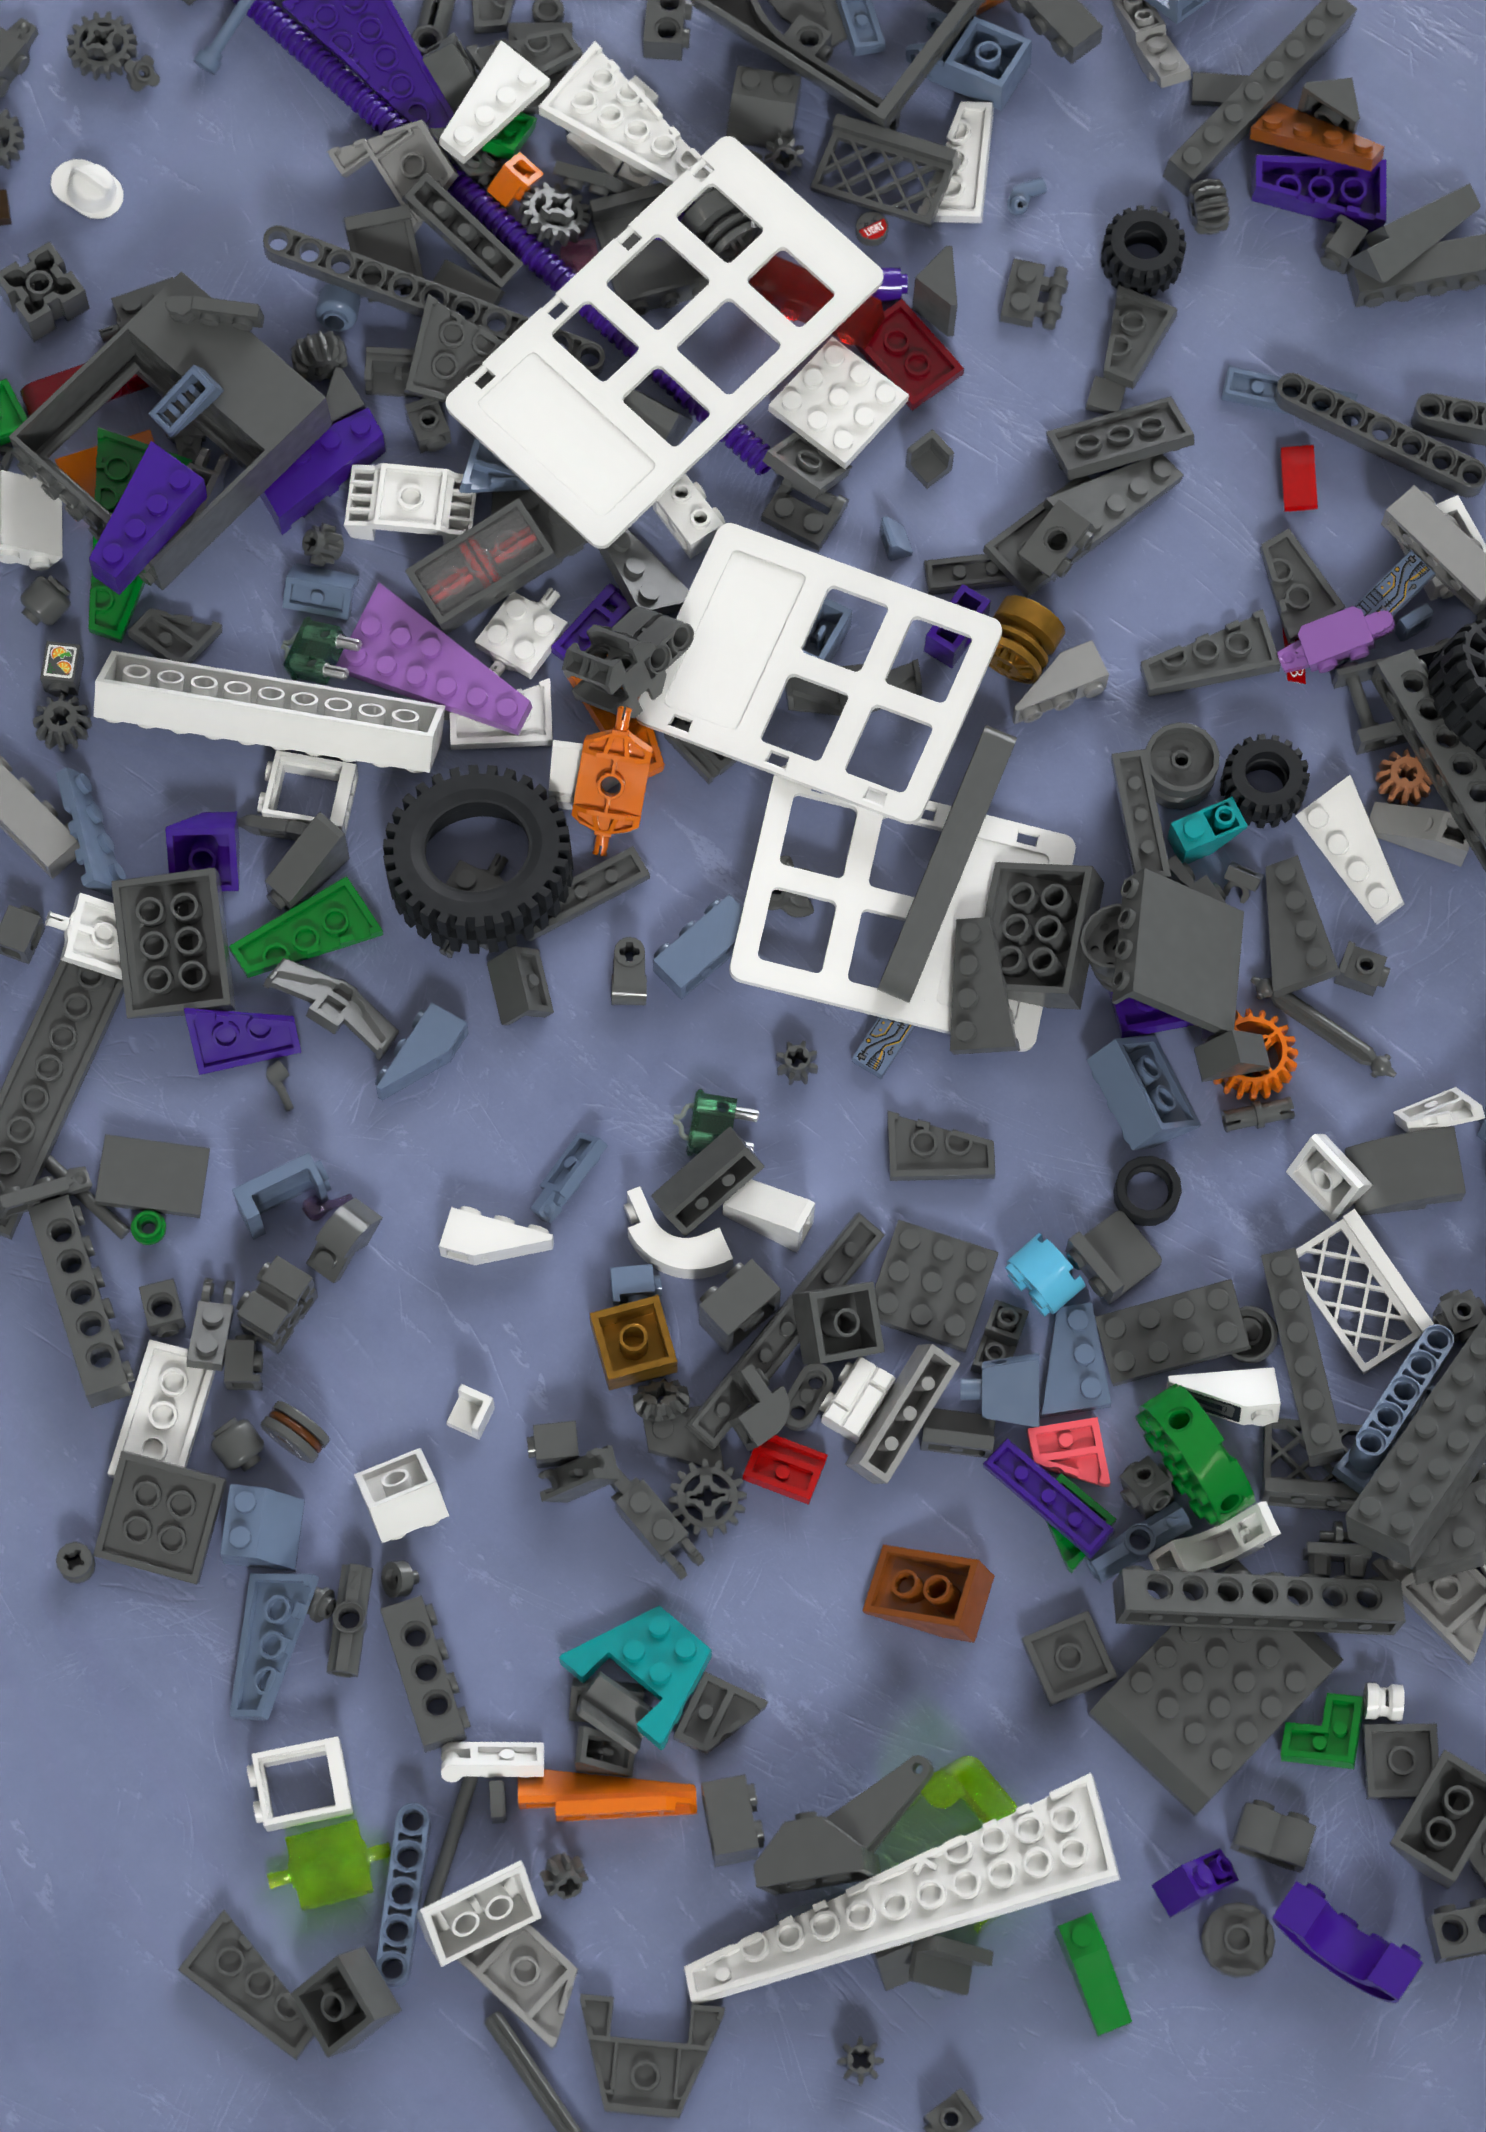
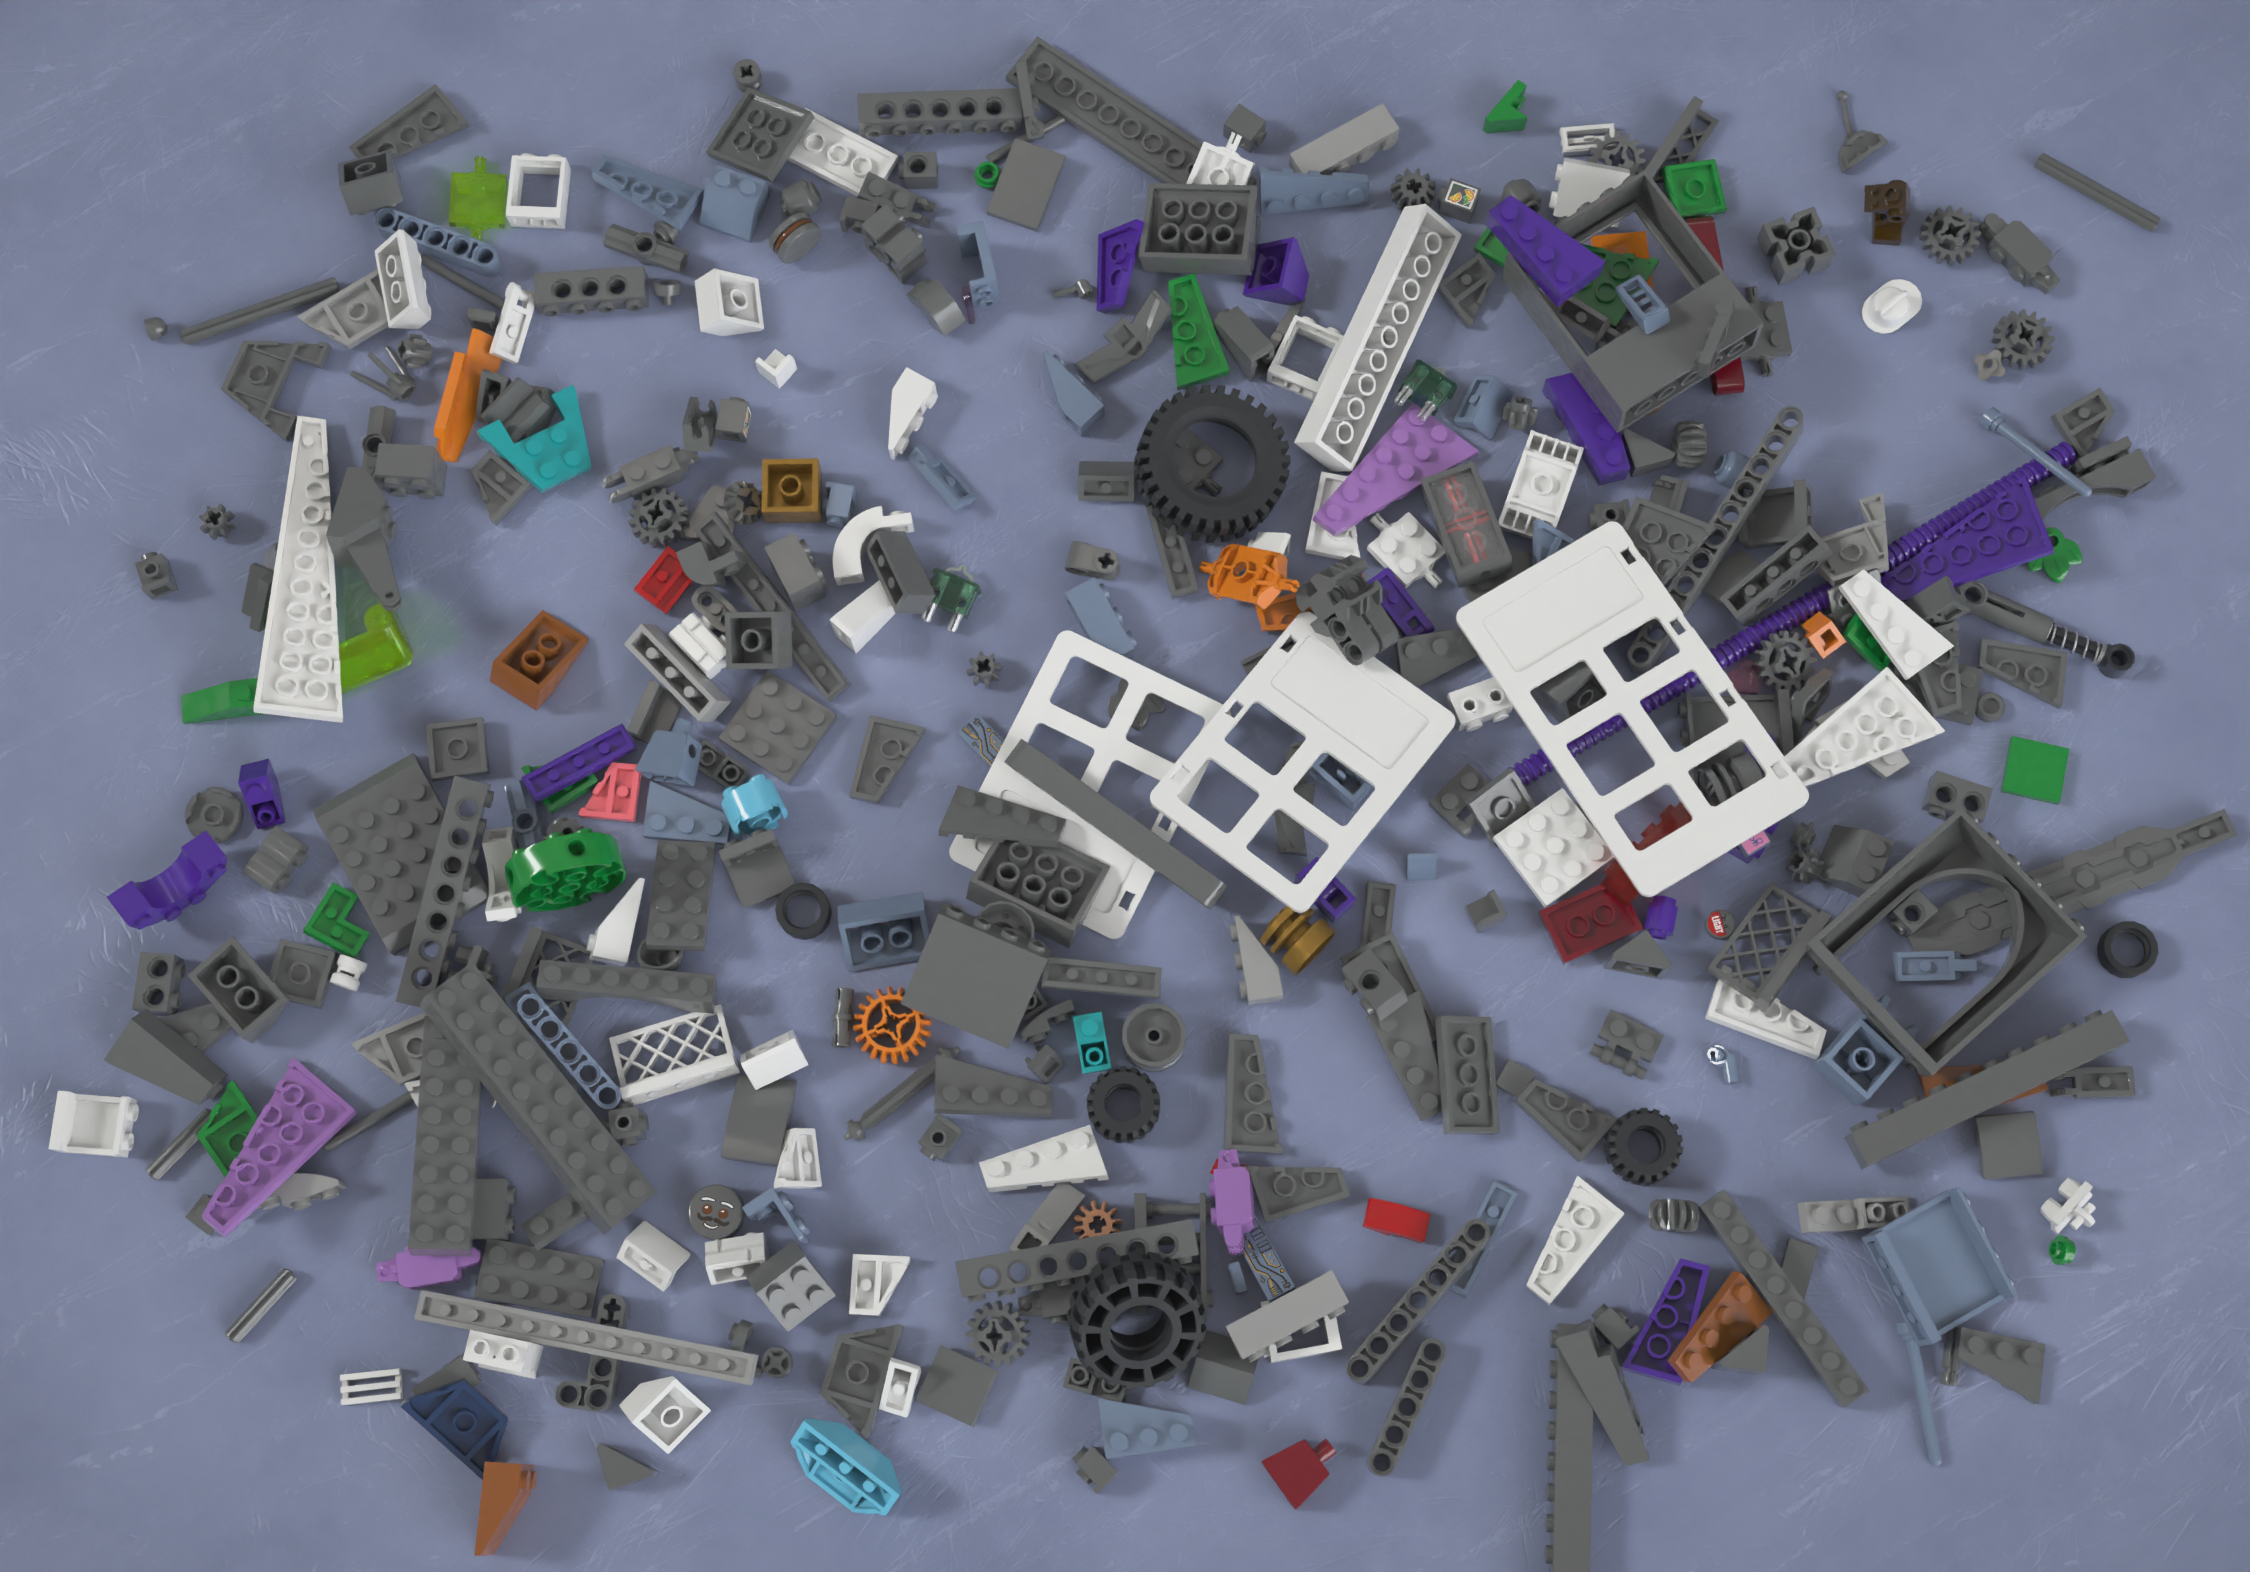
camera: 110 degrees right, 5 degrees up
(612, 1884) = (400, 385): none -> dark grey plant
(682, 1886) = (379, 431): none -> dark grey piece
(1231, 1055) = (886, 1002): dark grey slope -> none
(1258, 302) = (1576, 1234): none -> white wing

